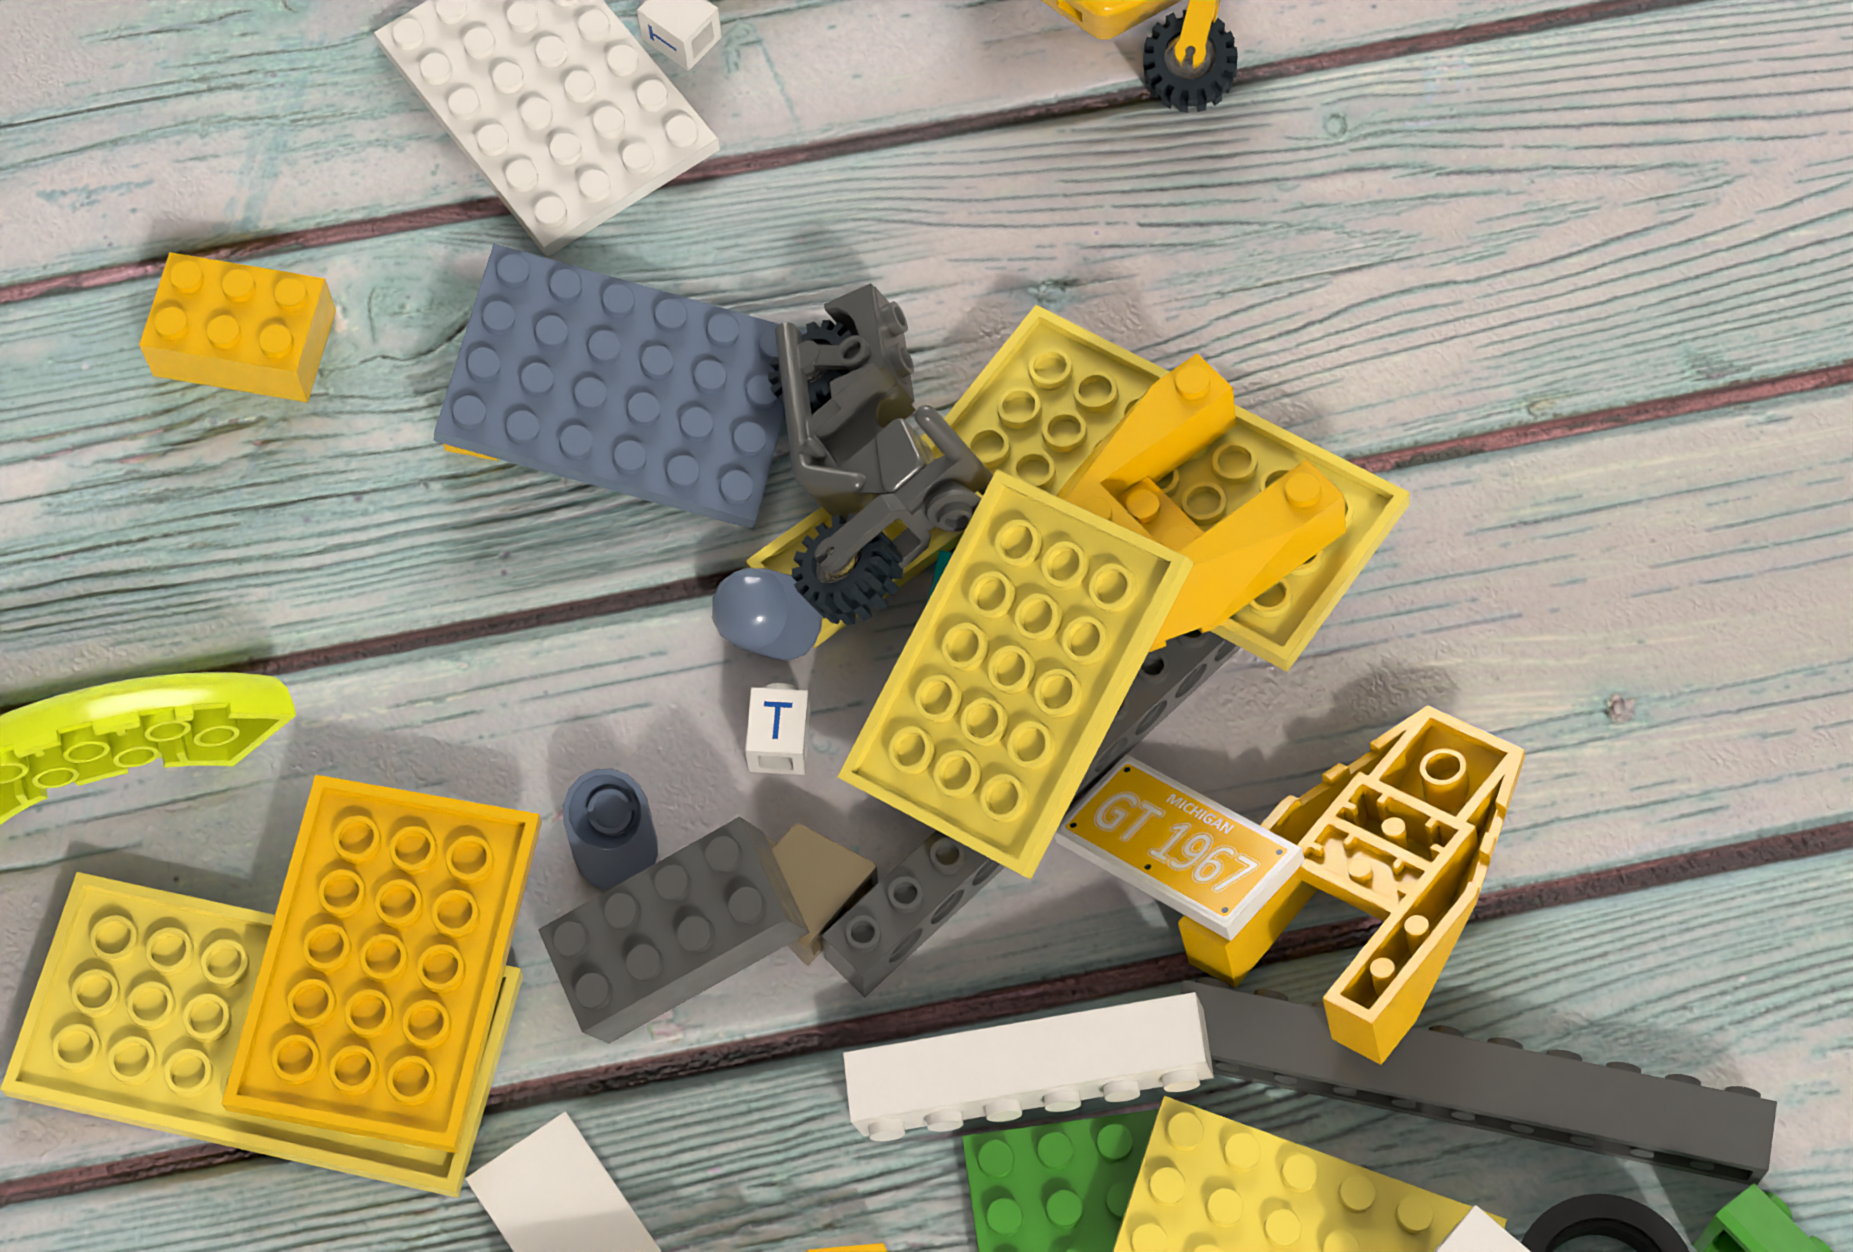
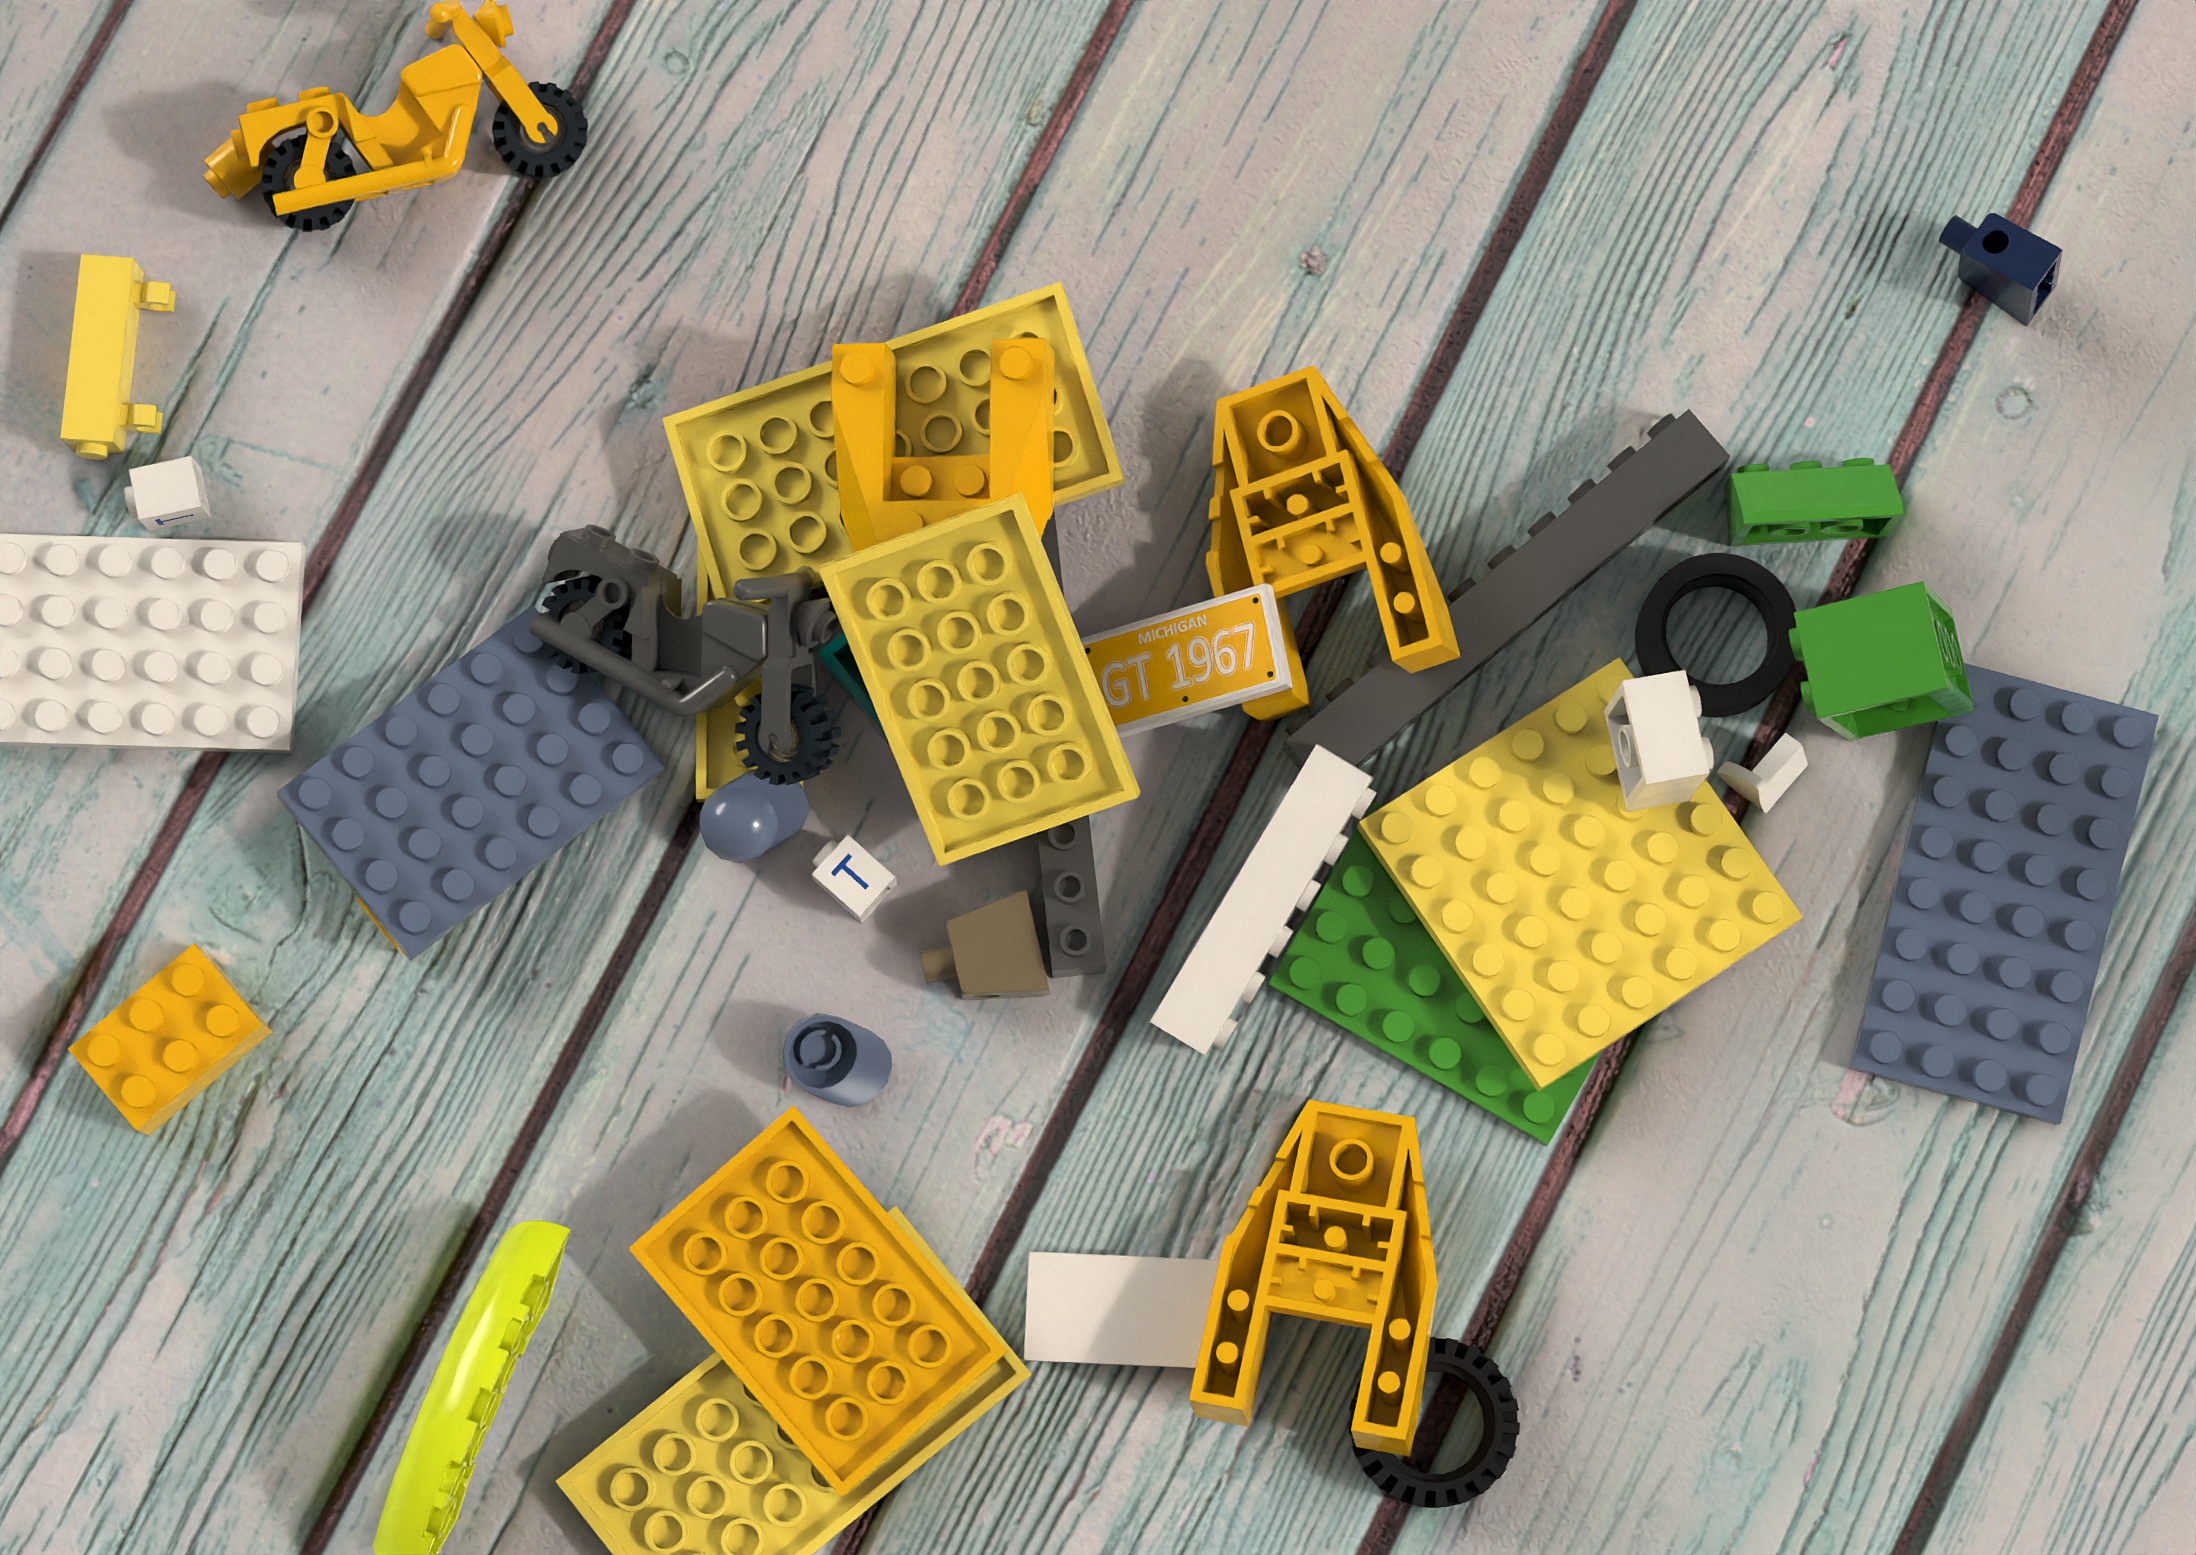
camera: 55 degrees left, 15 degrees up
(673, 931) = (963, 1074): dark grey brick -> none

